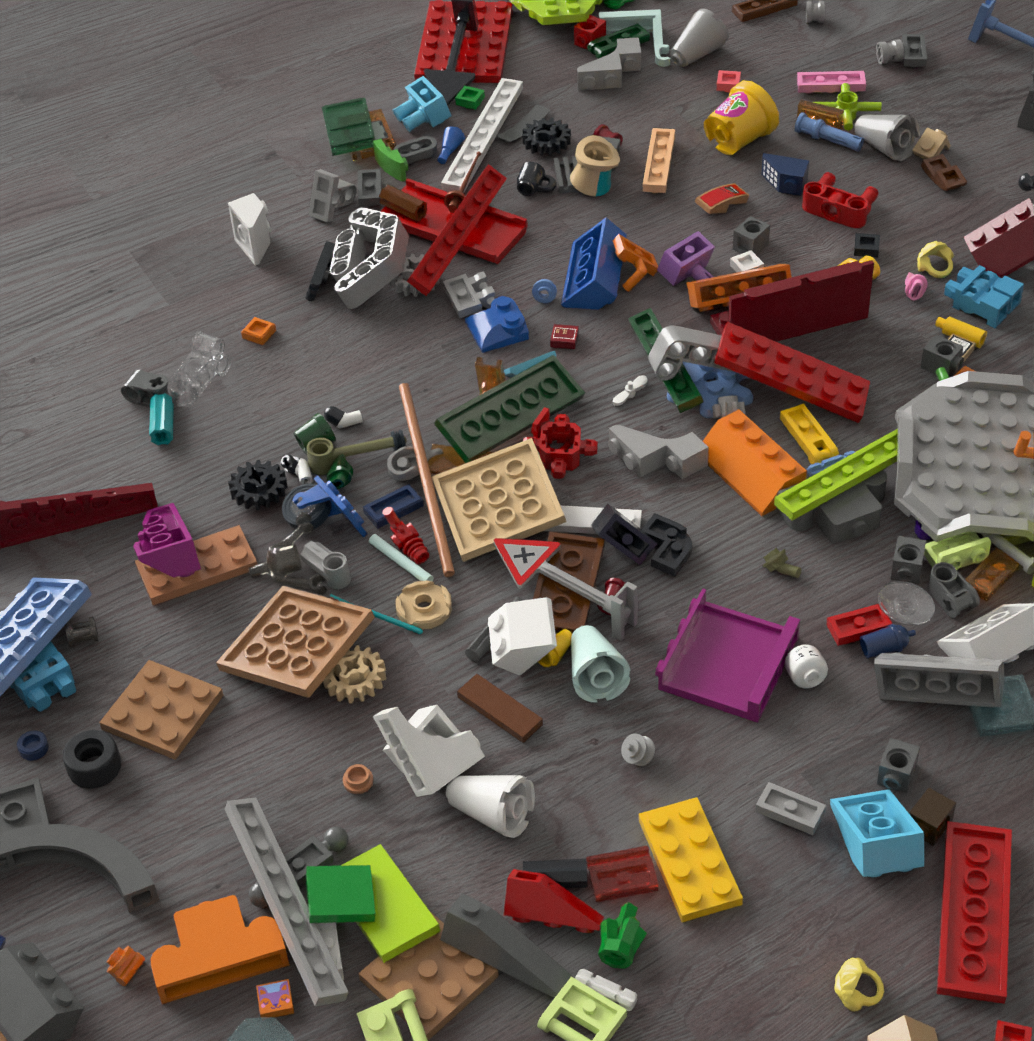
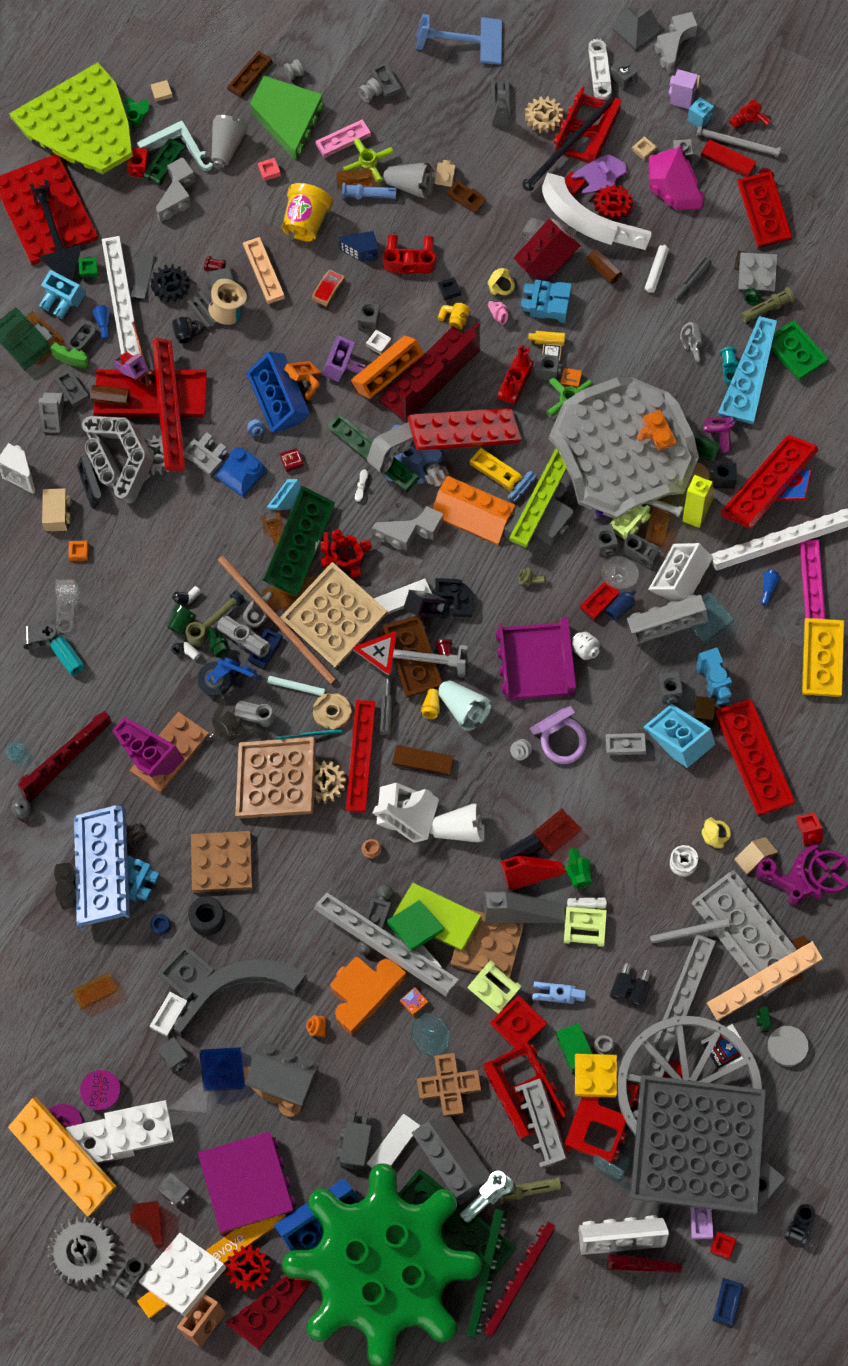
camera: 30 degrees left, 20 degrees up
(26, 487) = (15, 751): none -> clear light blue plate
(258, 484) = (171, 683): black gear -> none
(262, 282) = (55, 509): none -> tan brick
(373, 478) = (236, 631): none -> light grey piece
(406, 537) = (290, 670): red piece -> none
(423, 663) = (360, 756): none -> red plate
(444, 179) = (128, 364): none -> medium lavender leg
(521, 634) = (412, 707): white slope -> none
(690, 859) = (586, 802): yellow plate -> none
(701, 733) = (554, 723): none -> lavender tile
(777, 1008) = (683, 869): none -> white wheel
(783, 42) = (286, 112): none -> bright green slope
(894, 353) = (520, 370): none -> red piece
(971, 782) = (717, 684): none -> dark azure hips

